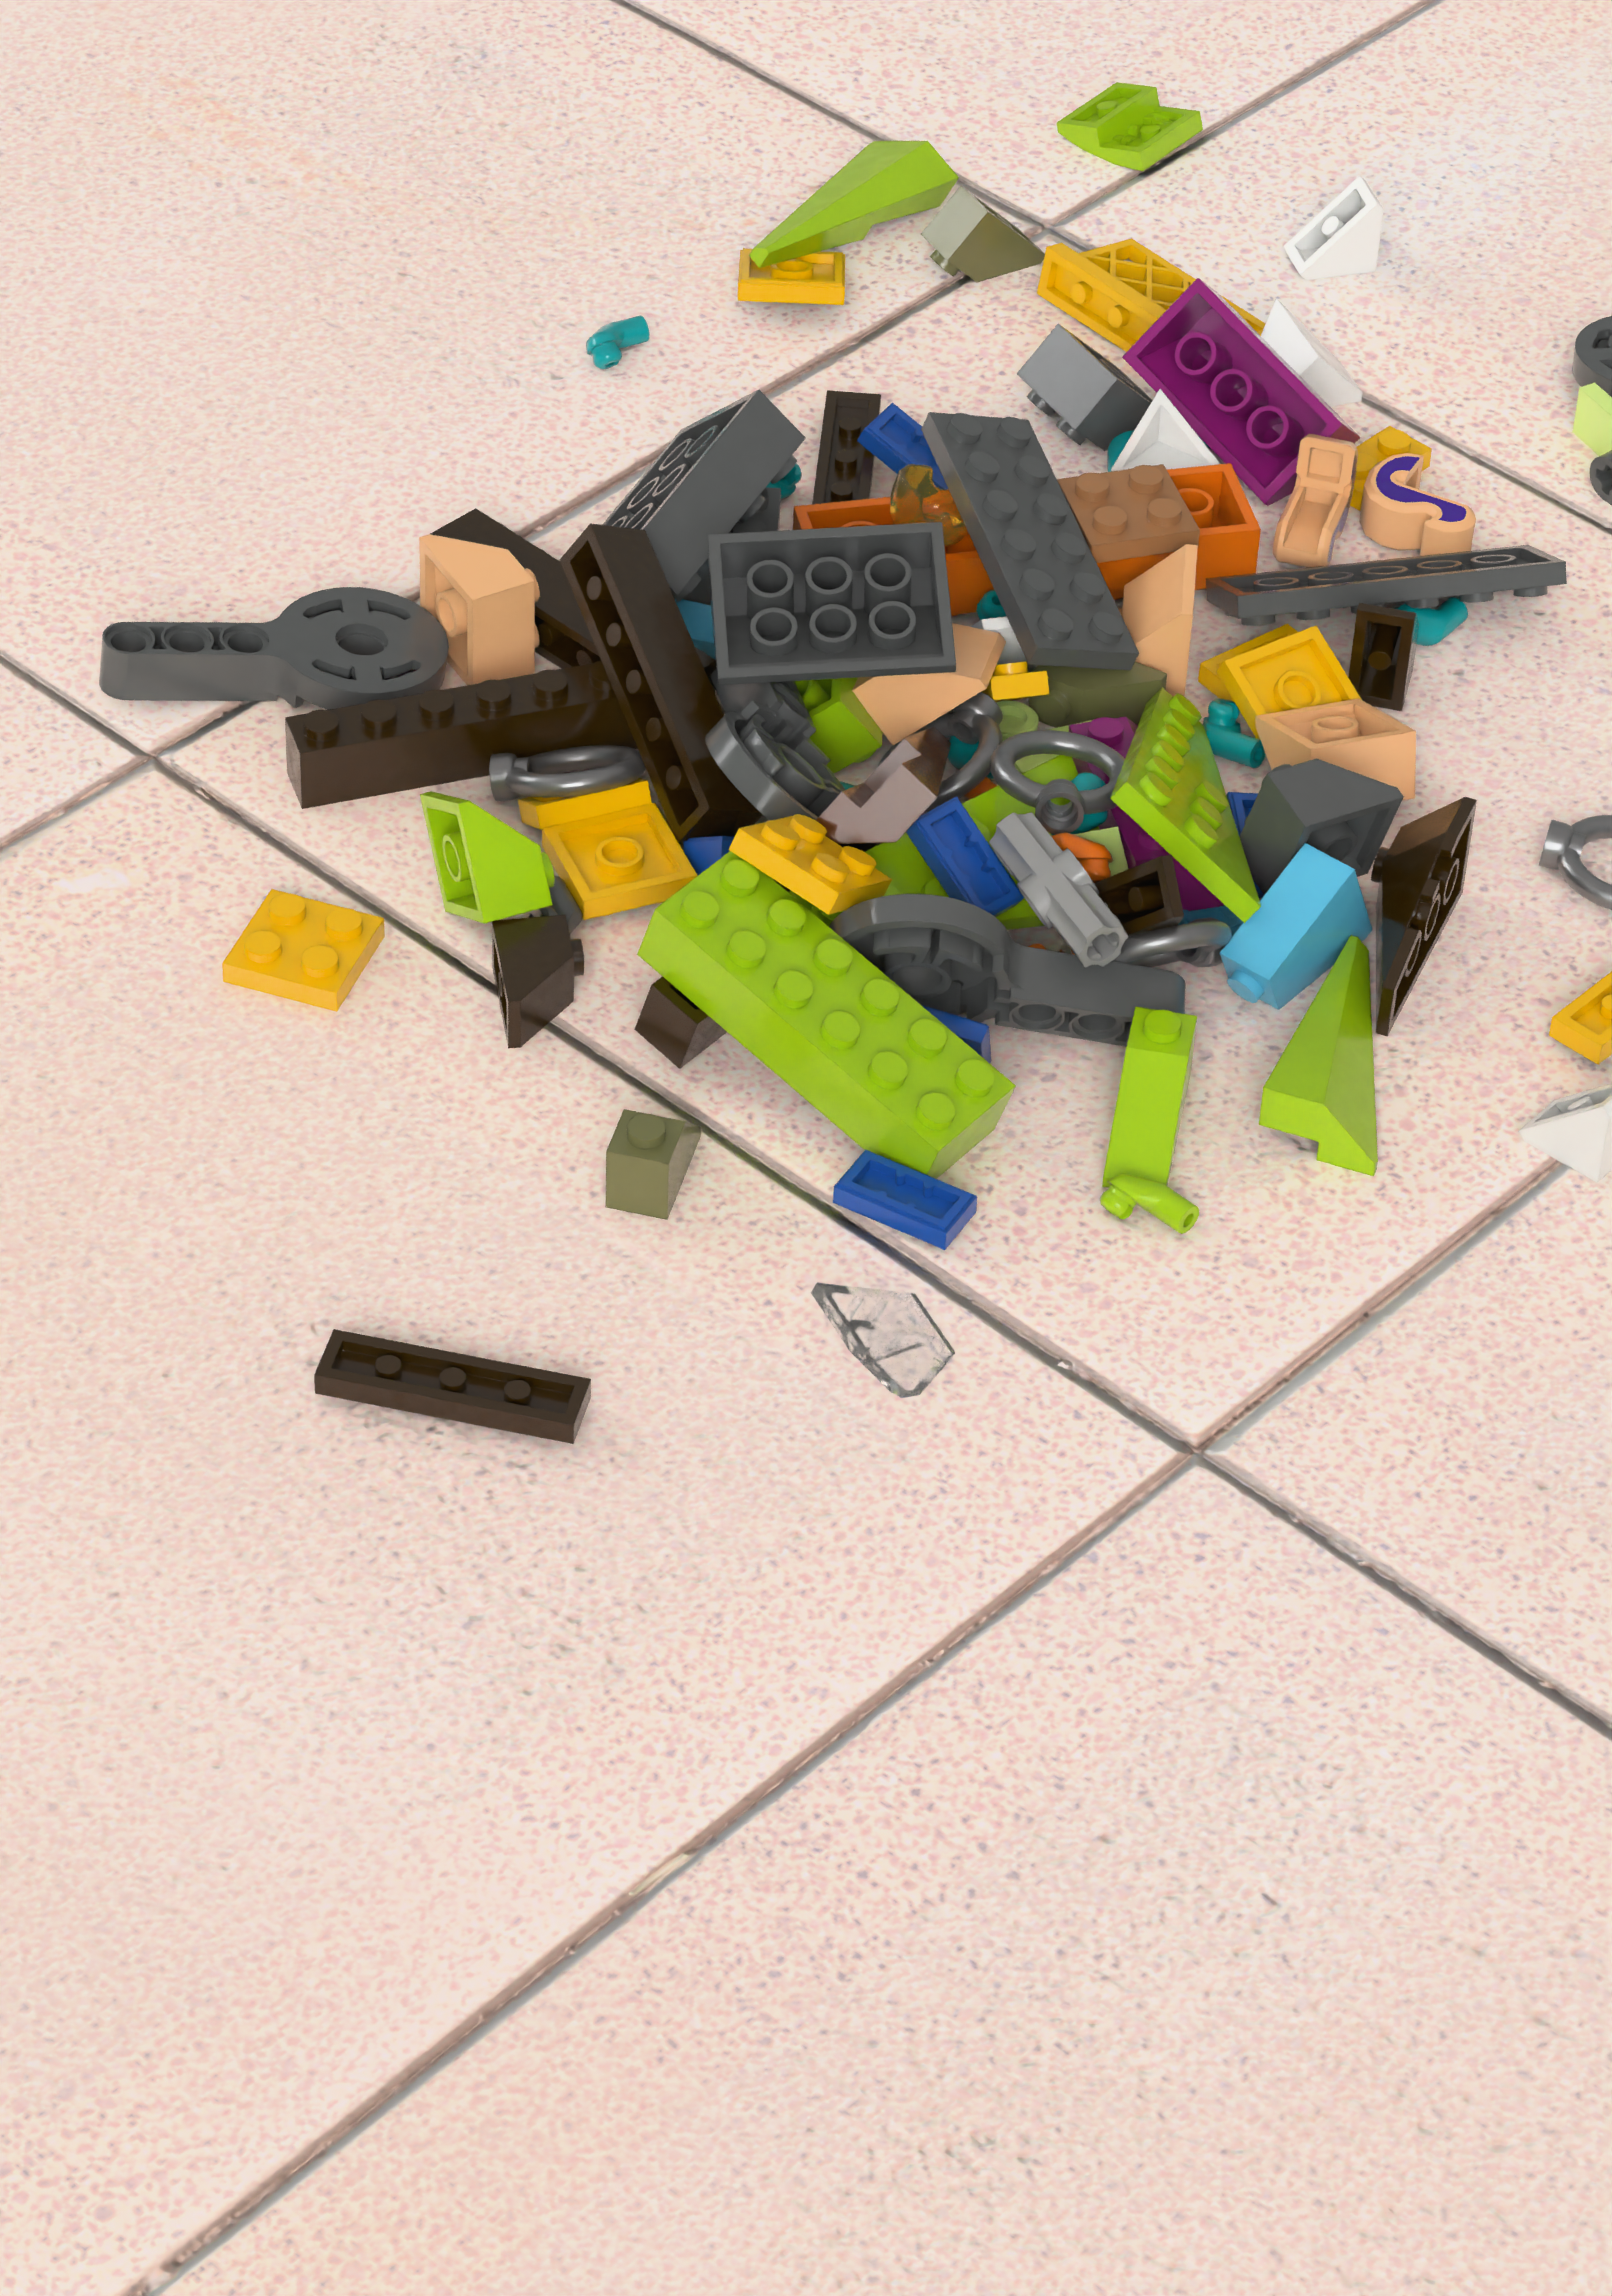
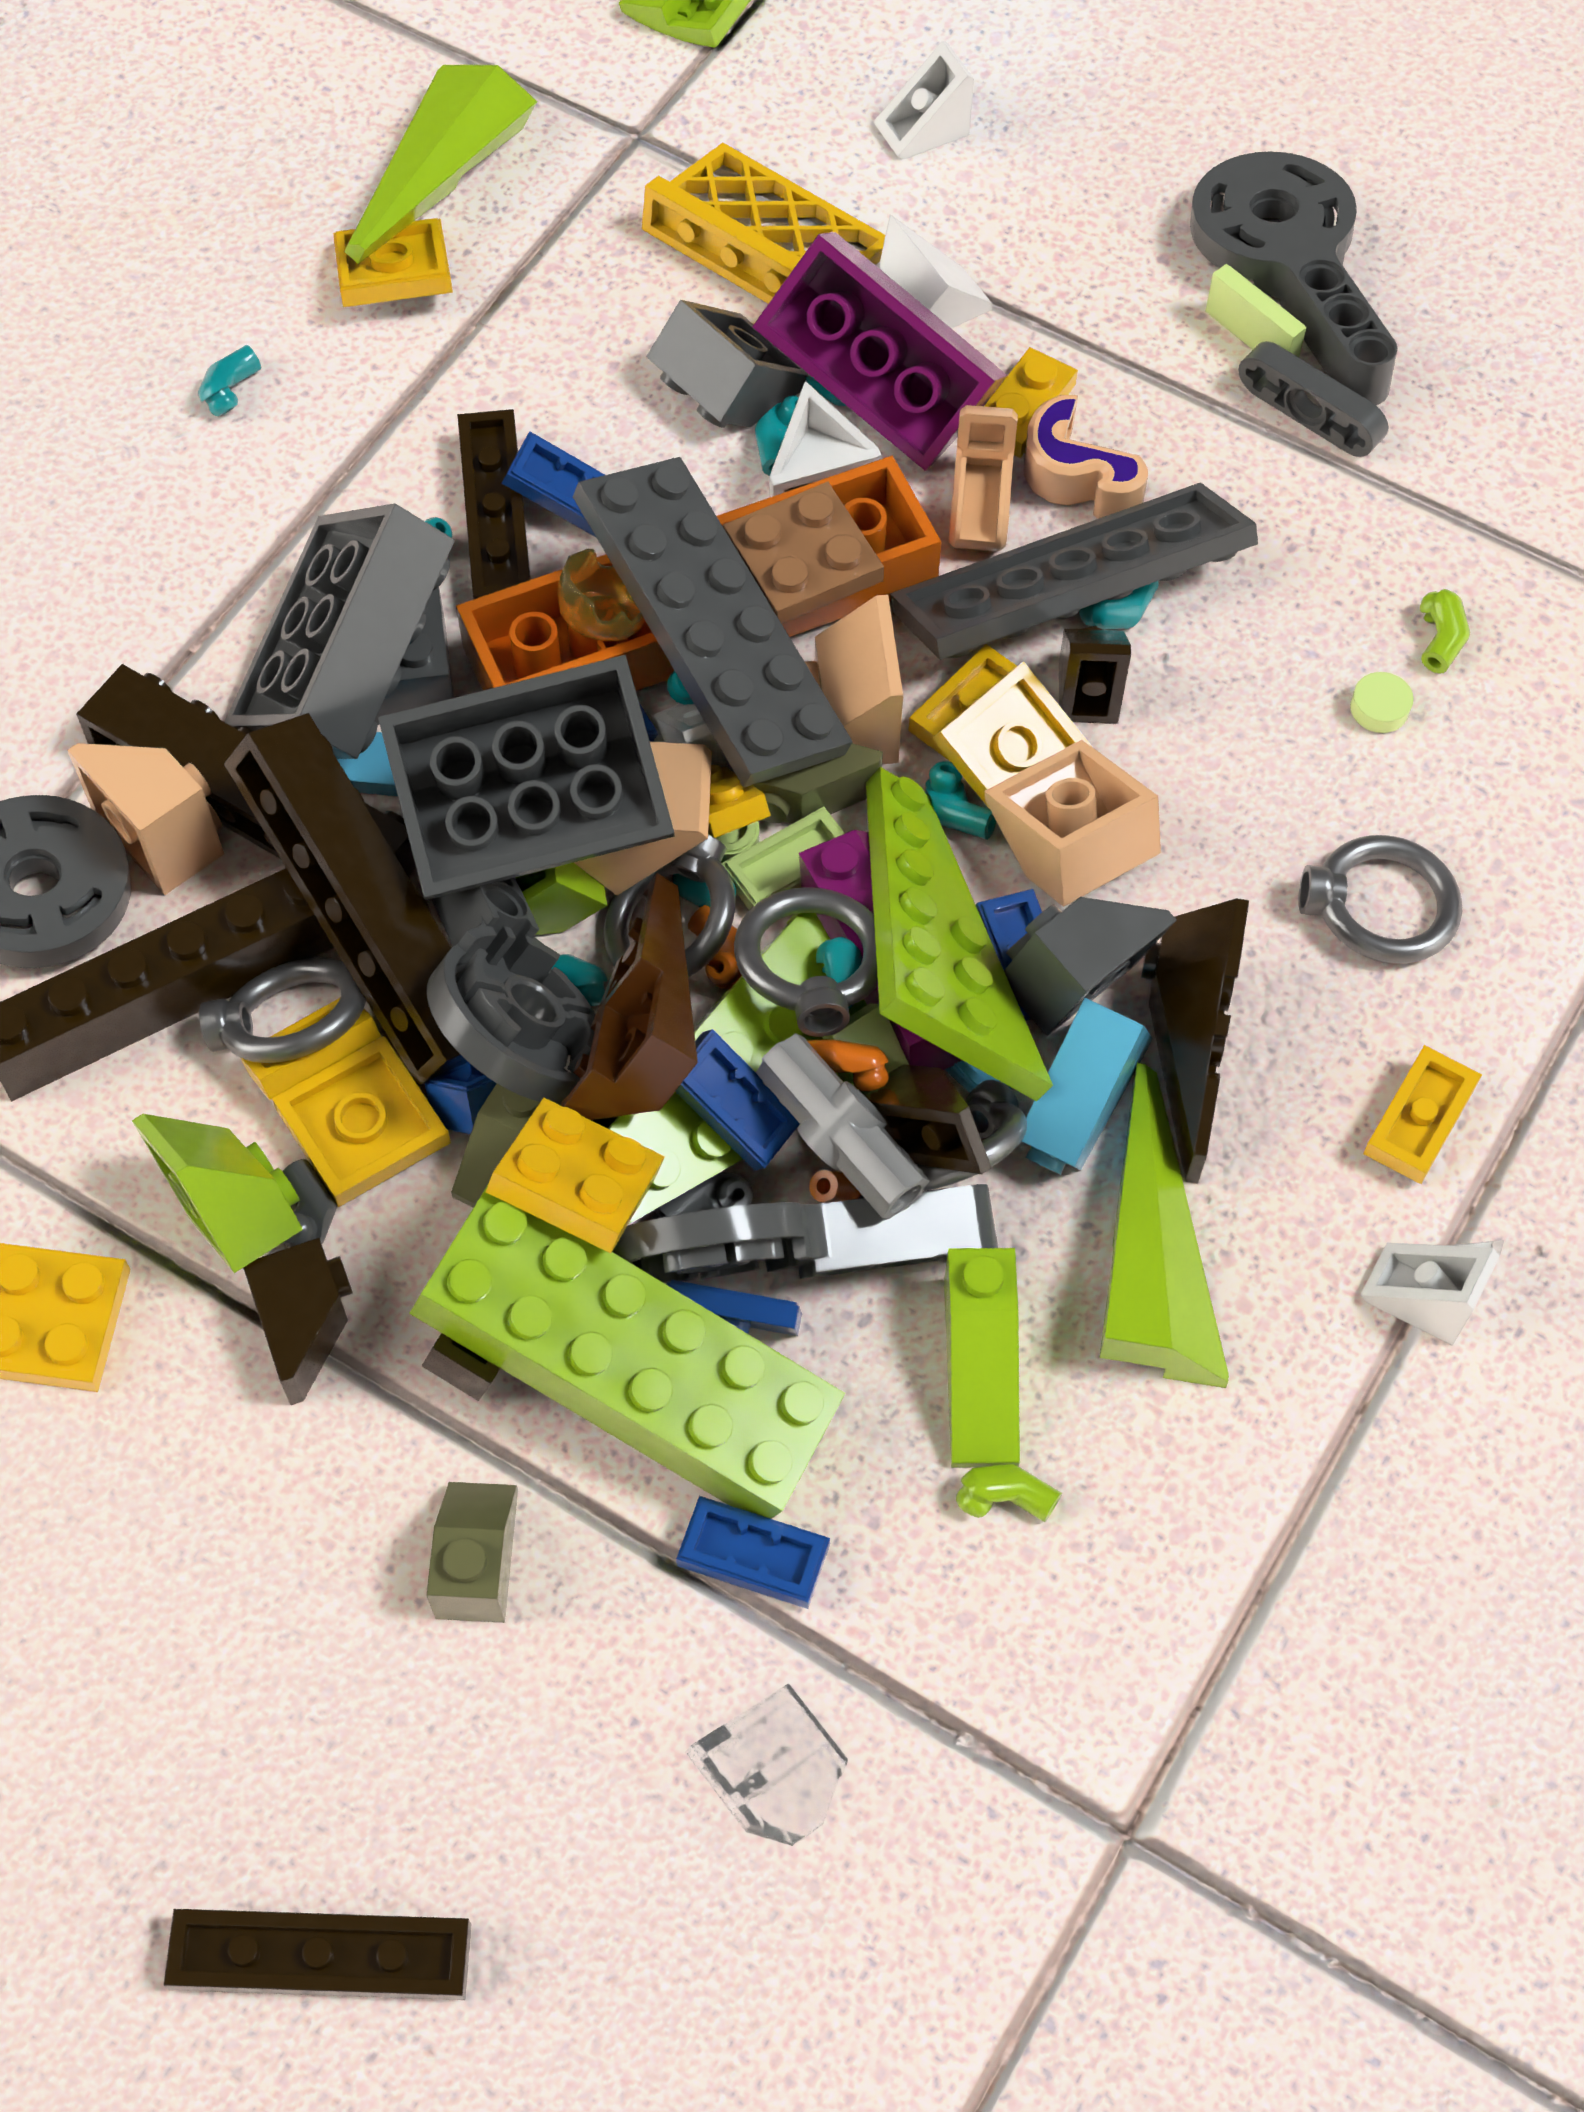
camera: 10 degrees left, 20 degrees up
(978, 240) = (572, 178): olive slope -> none

